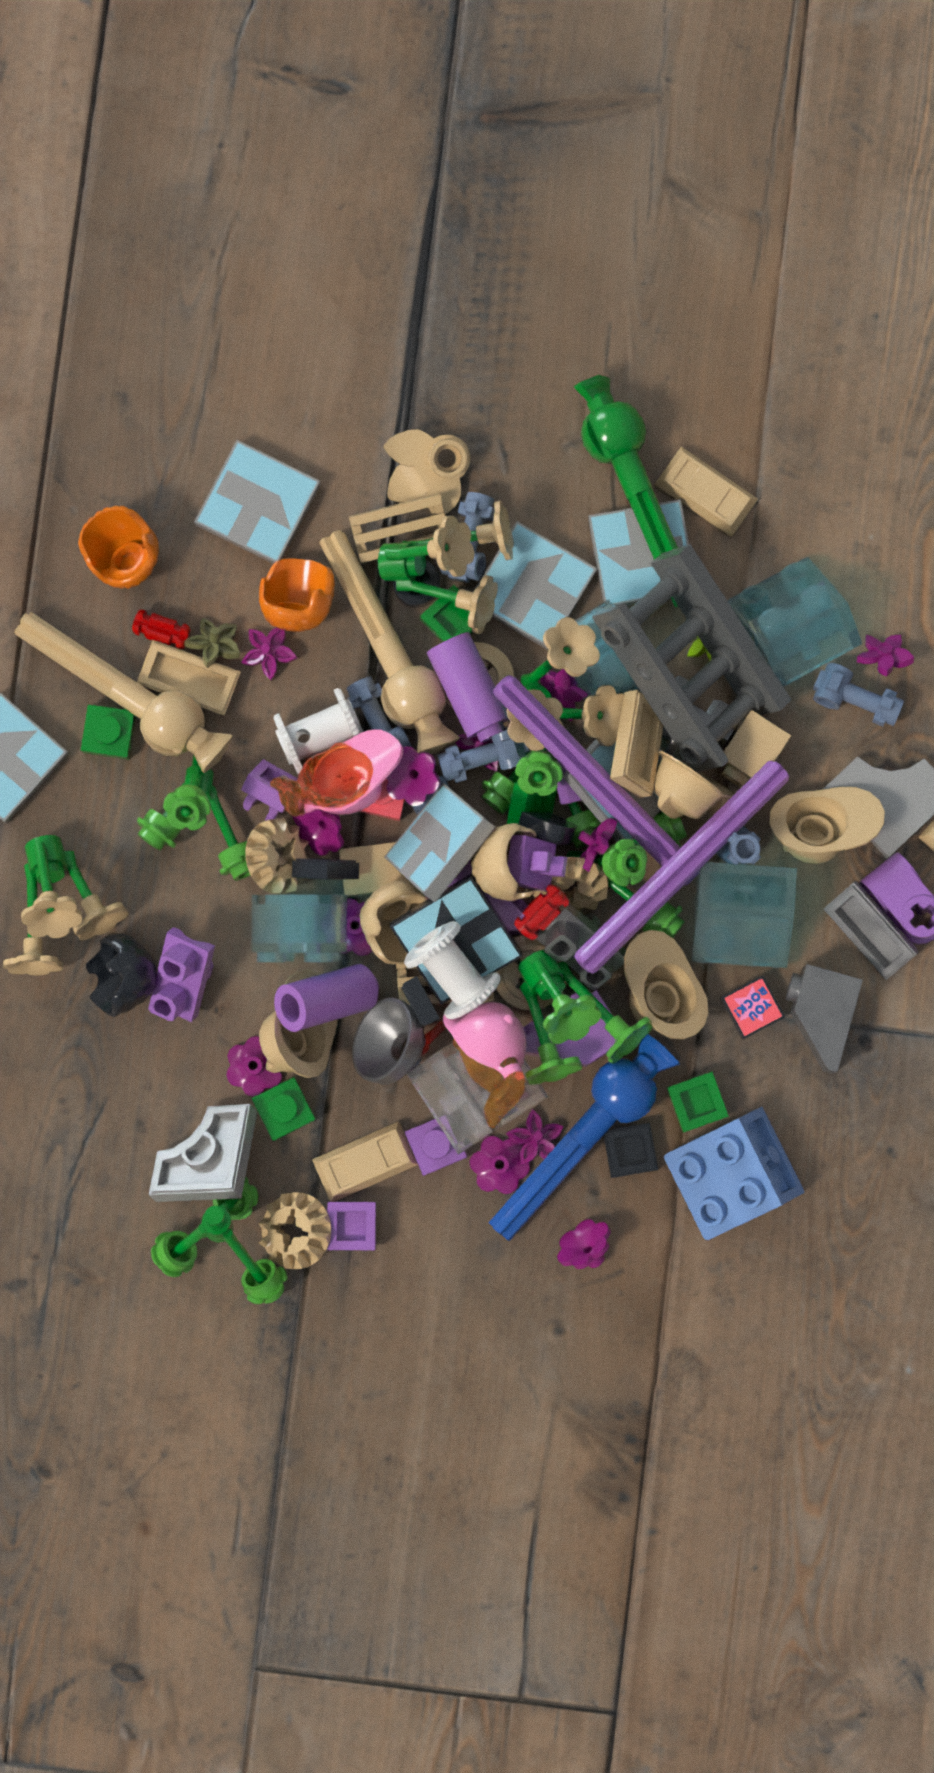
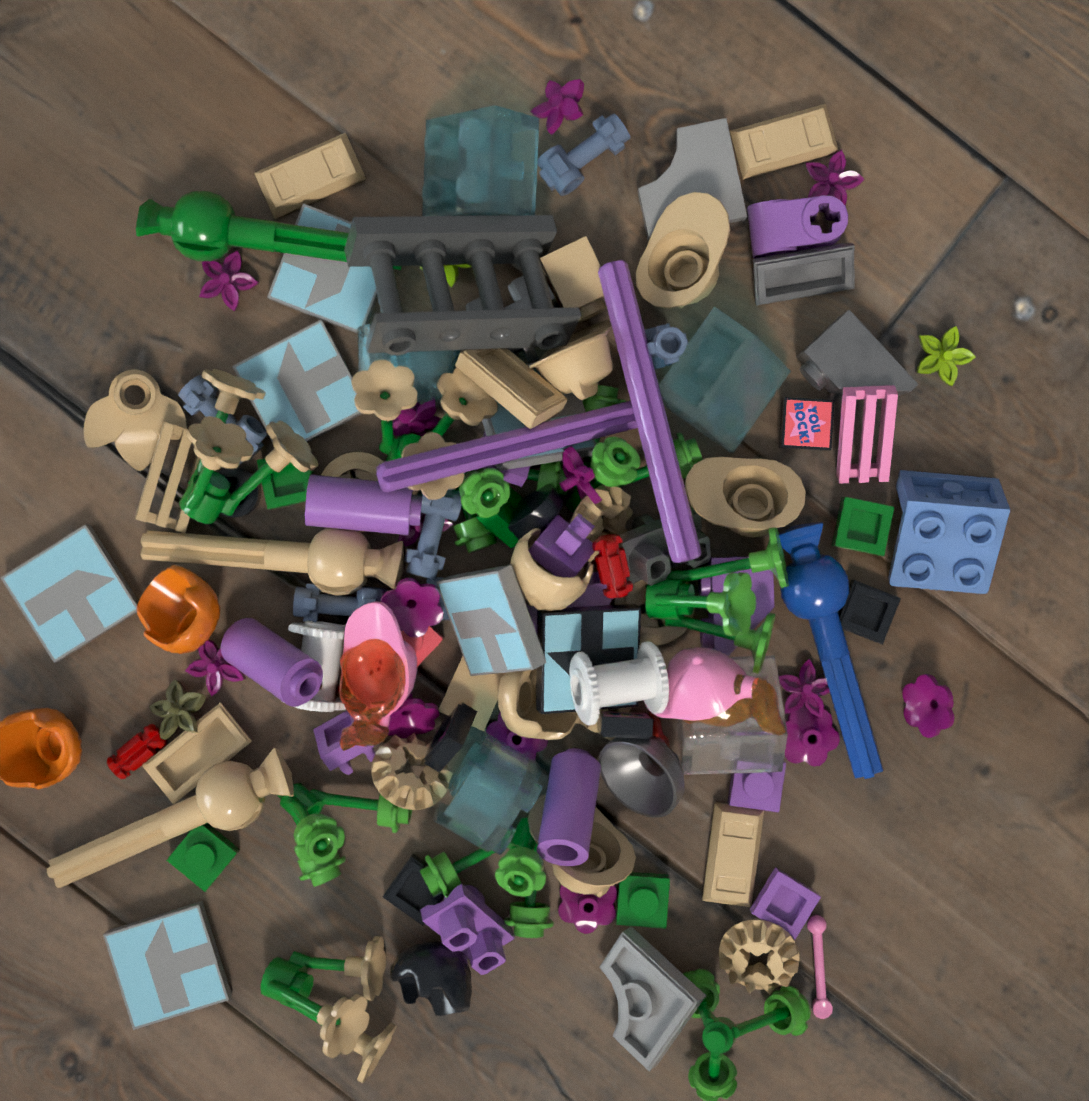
camera: 65 degrees left, 5 degrees up
(185, 914) = (410, 891): none -> black tile
(253, 983) = (518, 872): none -> bright green plant
(283, 1312) = (821, 1005): none -> bright pink hinge
(301, 690) = (272, 662): none -> medium lavender brick
(582, 476) = (226, 280): none -> magenta plant
(743, 1075) = (865, 468): none -> bright pink tile
(877, 1086) = (943, 356): none -> lime plant

